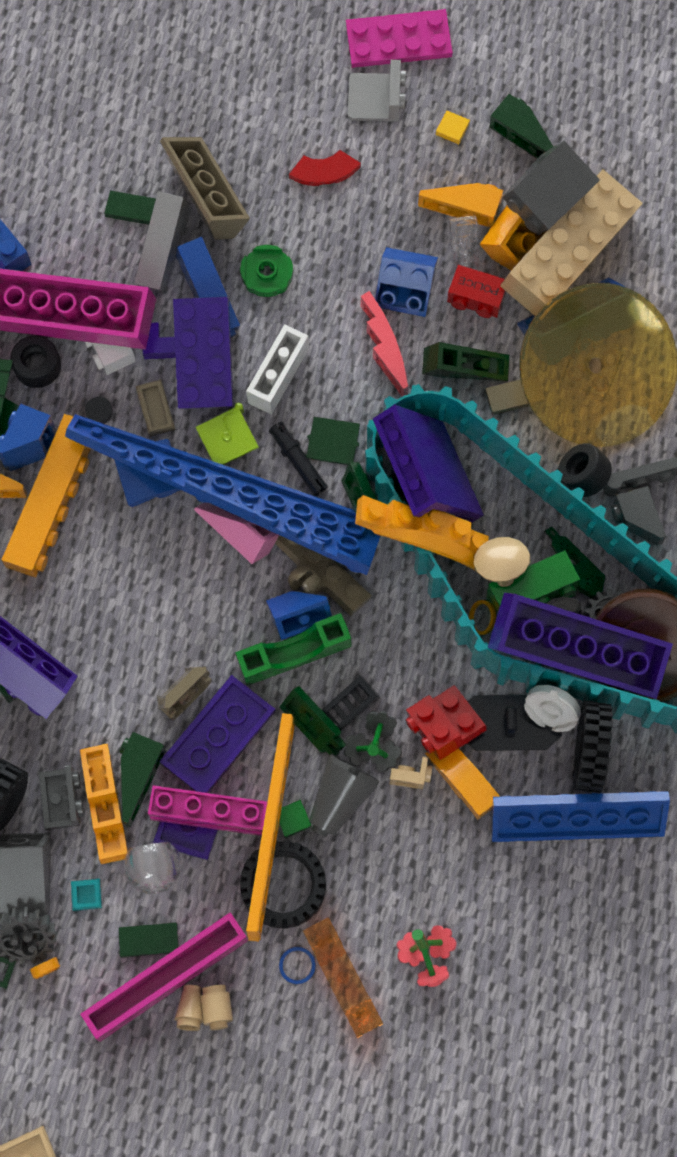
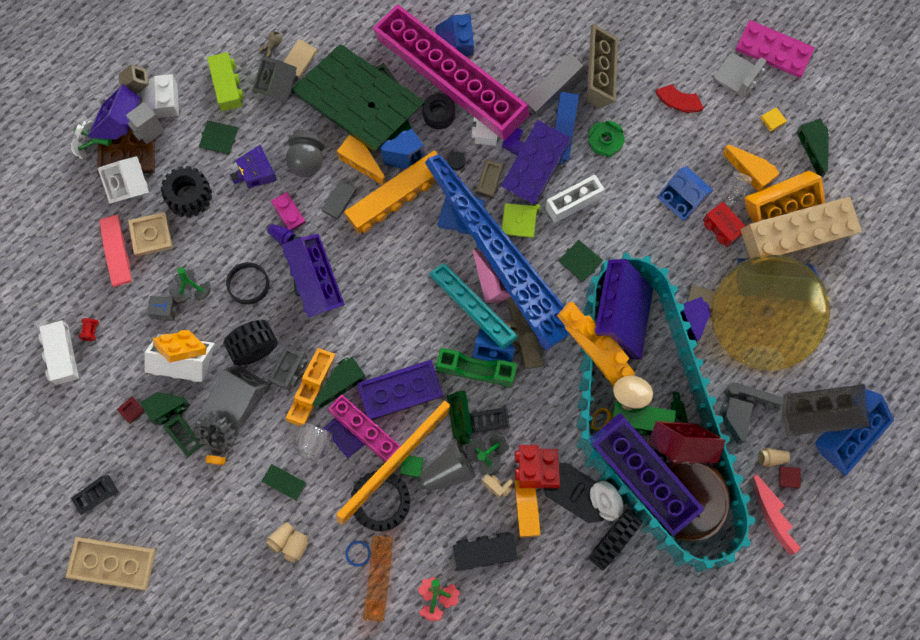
camera: 30 degrees right, 0 degrees up
(86, 894) = (266, 433): teal tile -> none
(129, 207) = (549, 54): dark green tile -> none
(164, 977) = (276, 509): dark pink brick -> none
(184, 691) = (397, 352): dark tan slope -> none
(240, 576) = (473, 306): none -> teal tile
(291, 449) = (553, 258): black pin -> none
(356, 484) = (577, 293): dark green plate -> none
(387, 350) = (646, 227): coral slope -> none
(448, 862) = (484, 551): none -> black brick
(464, 363) = (689, 262): dark green slope -> none
(517, 420) = (697, 314): none -> dark purple slope
(550, 188) = (808, 188): dark grey slope -> none
(579, 816) = (581, 576): blue plate -> none
(585, 468) = (721, 370): black tyre -> none
(602, 579) = (686, 442): none -> dark red brick

